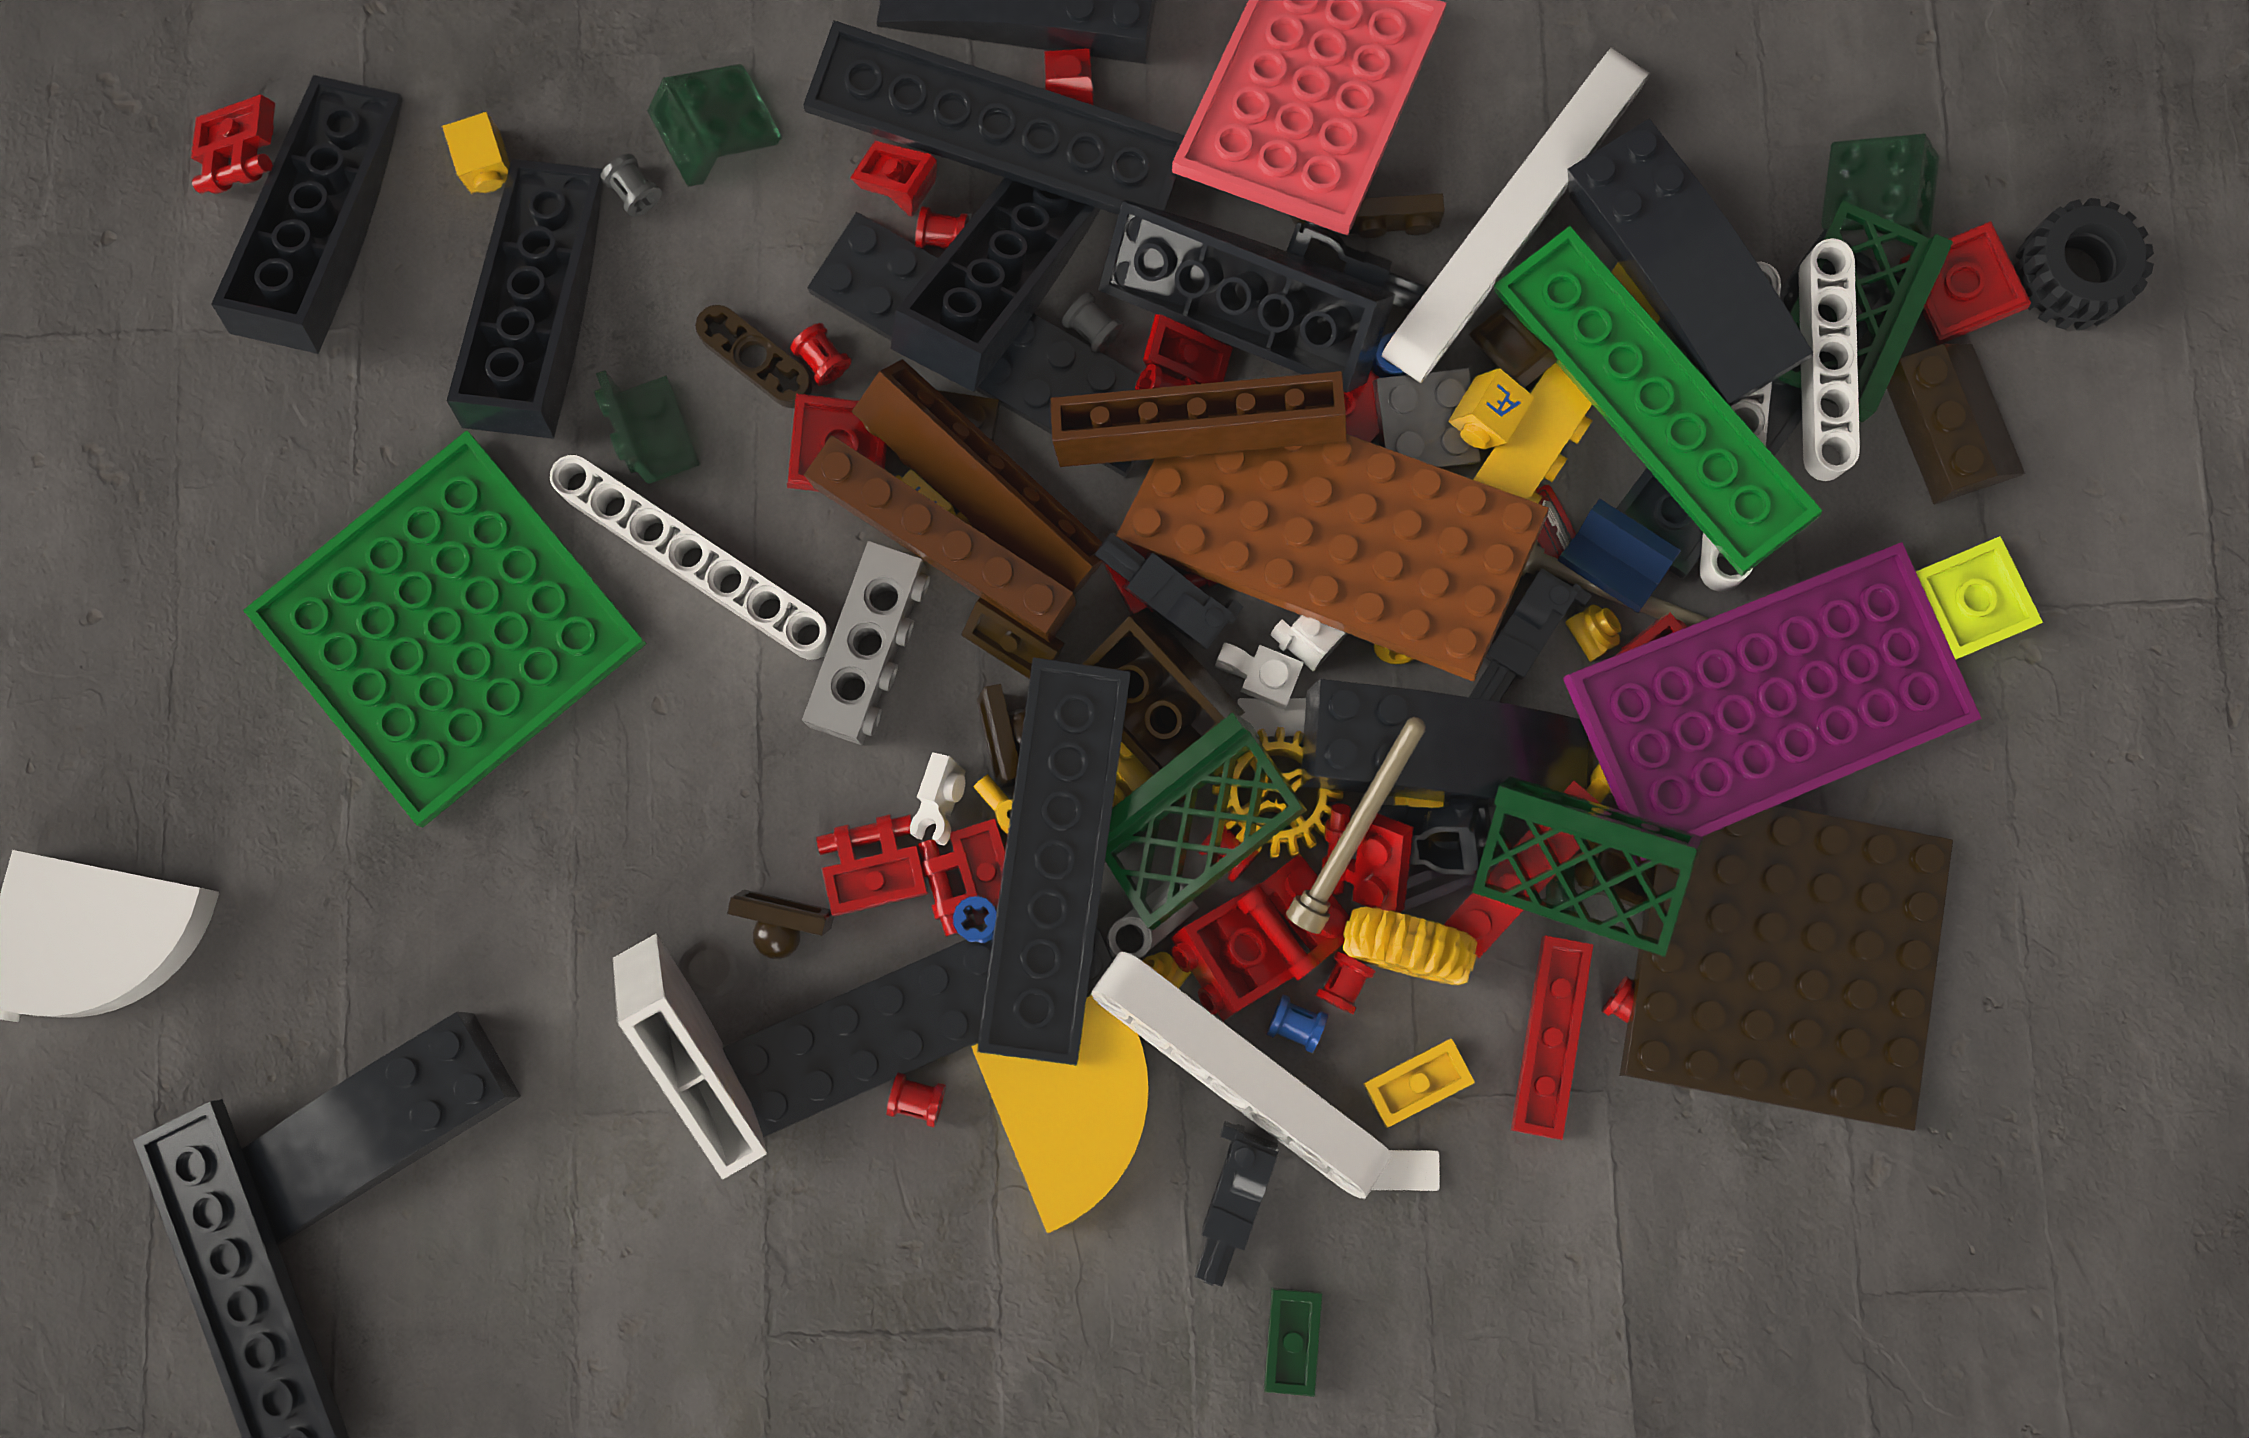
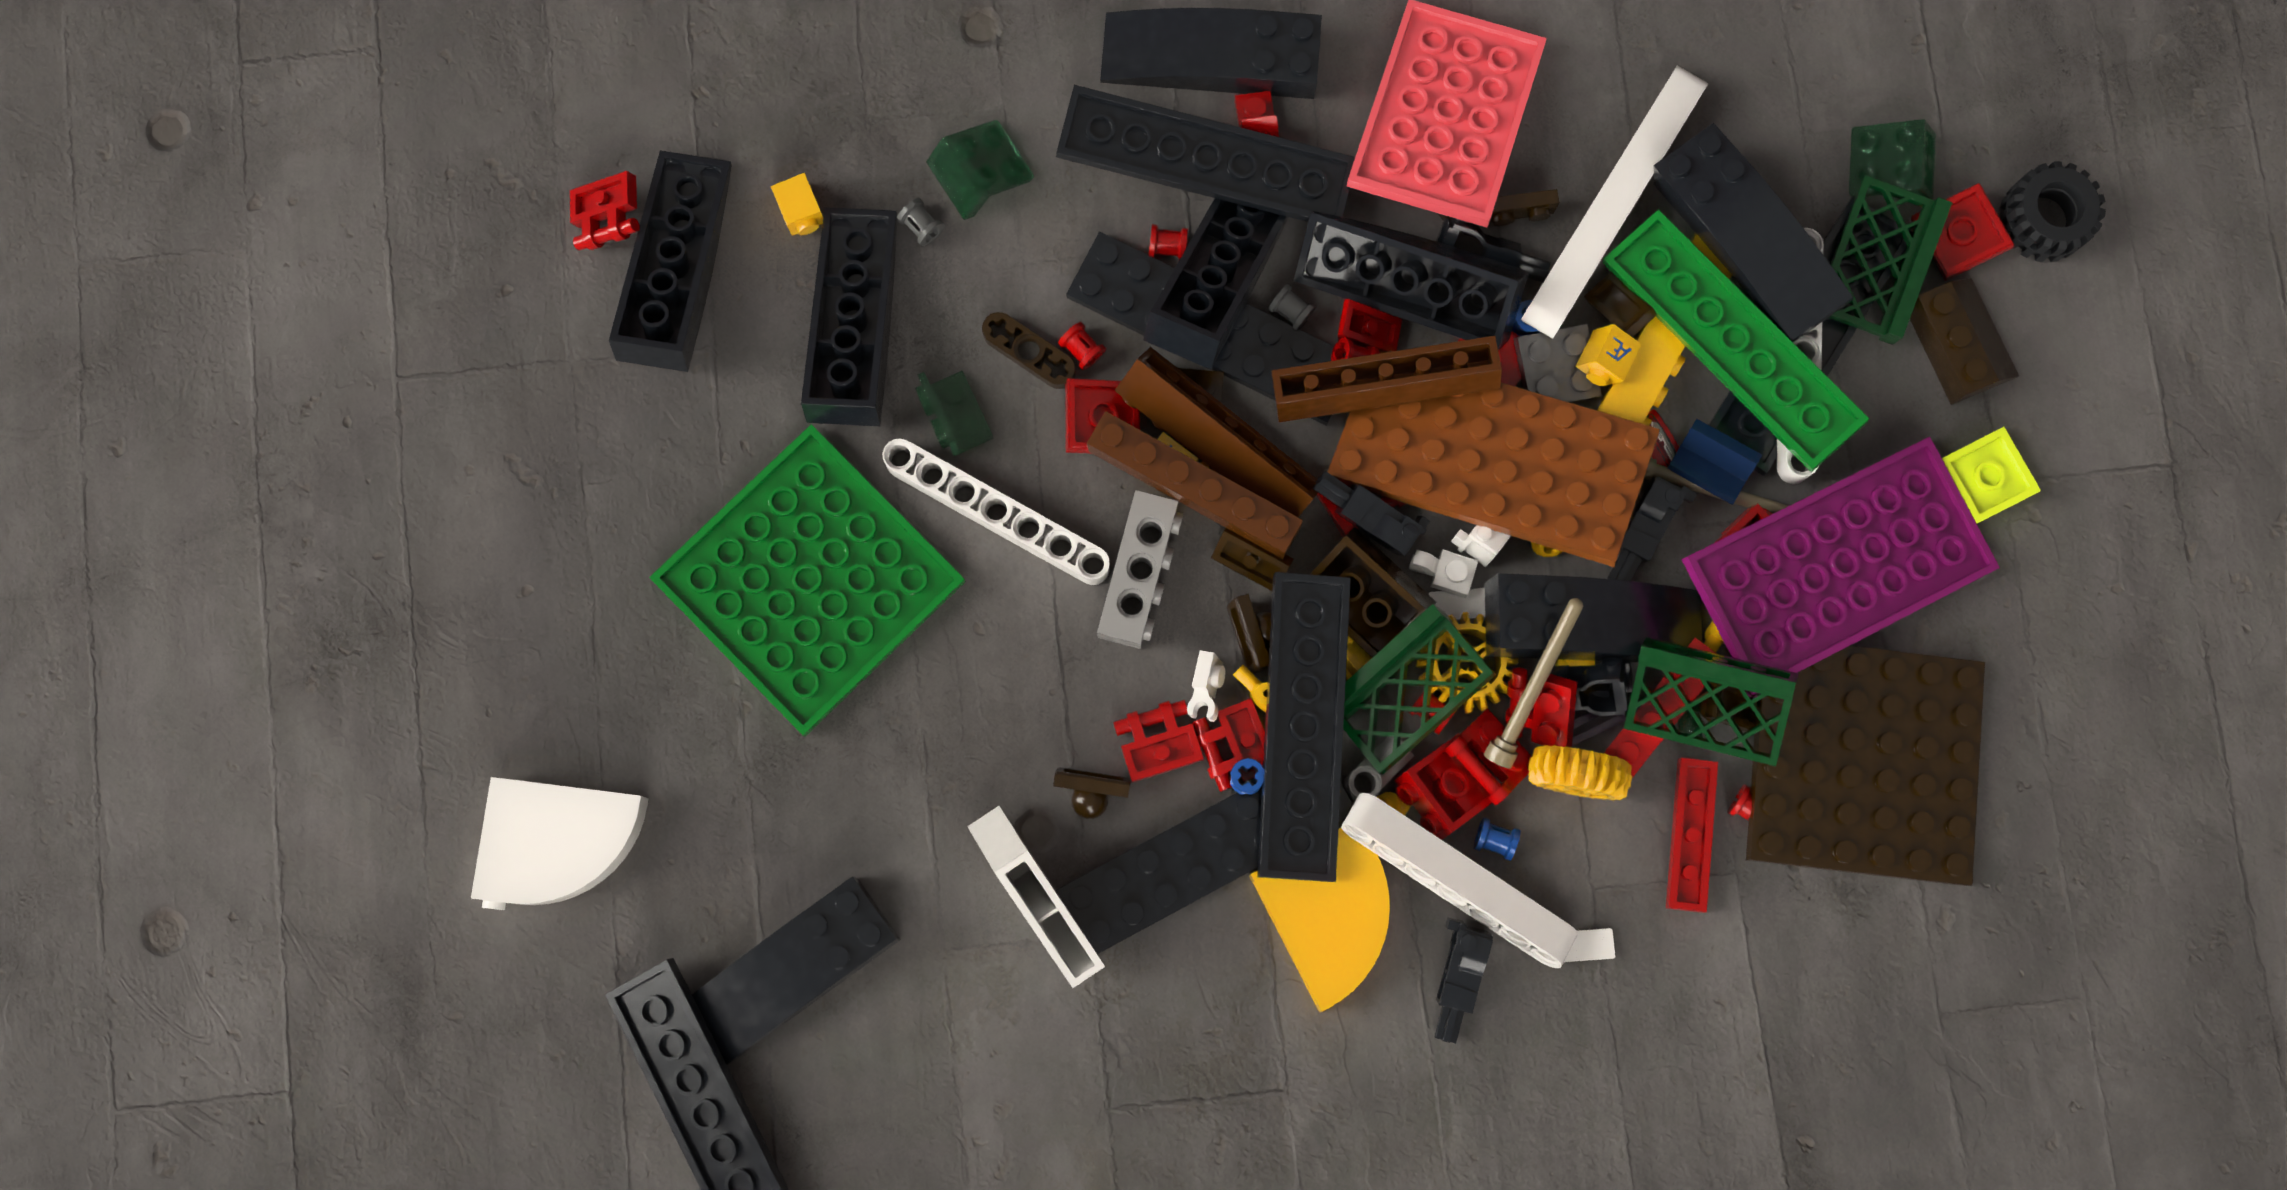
camera: 10 degrees left, 0 degrees up
(897, 173) = (1128, 199): red slope -> none
(916, 1100) = (1209, 918): red bush -> none
(1292, 1342) = (1513, 1081): dark green plate -> none
(1345, 982) = (1531, 805): red bush -> none
(1418, 1083) = (1593, 877): yellow plate -> none
(1595, 631) = (1700, 520): yellow plate -> none
(1841, 341) = (1873, 285): white beam -> none

